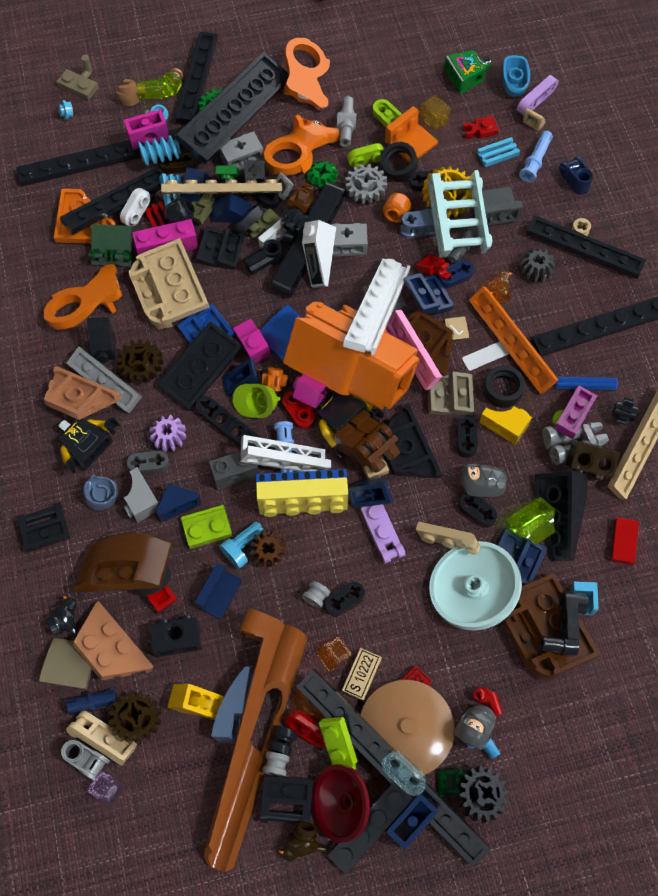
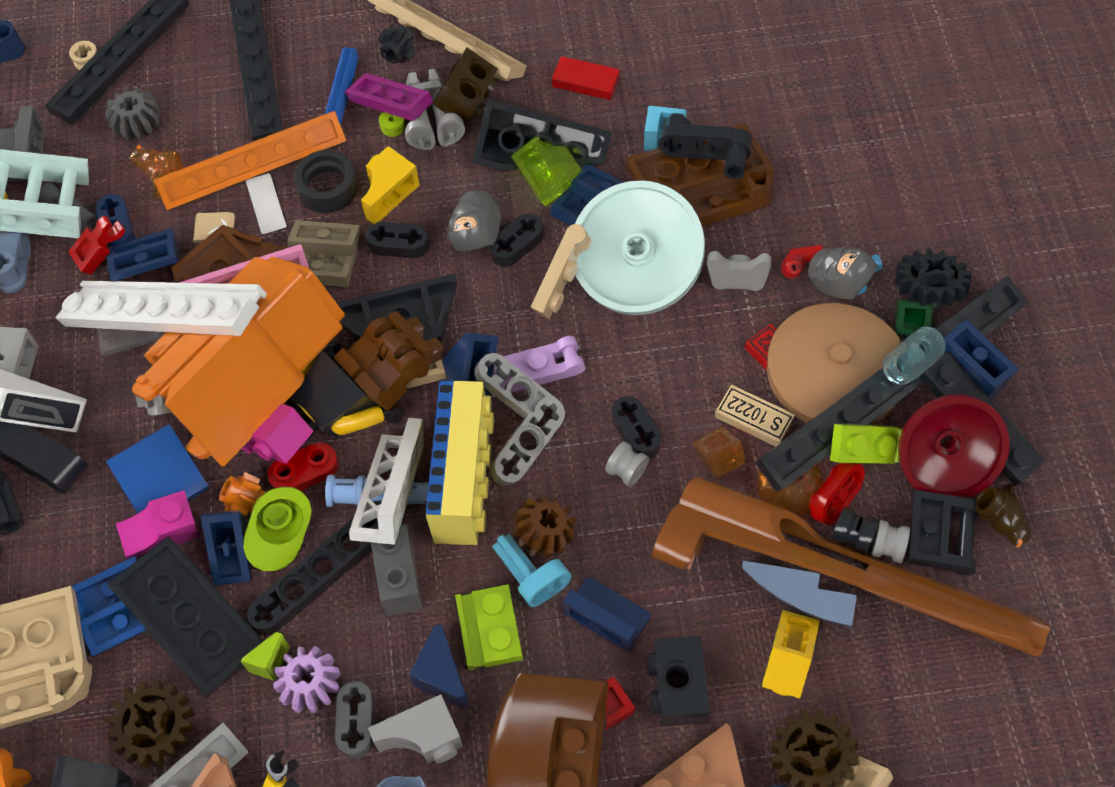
camera: 80 degrees left, 5 degrees down
(179, 411) = (267, 656): none -> lime slope
(347, 530) = (529, 410): none -> light grey beam
(470, 655) = (738, 271): none -> light grey piece

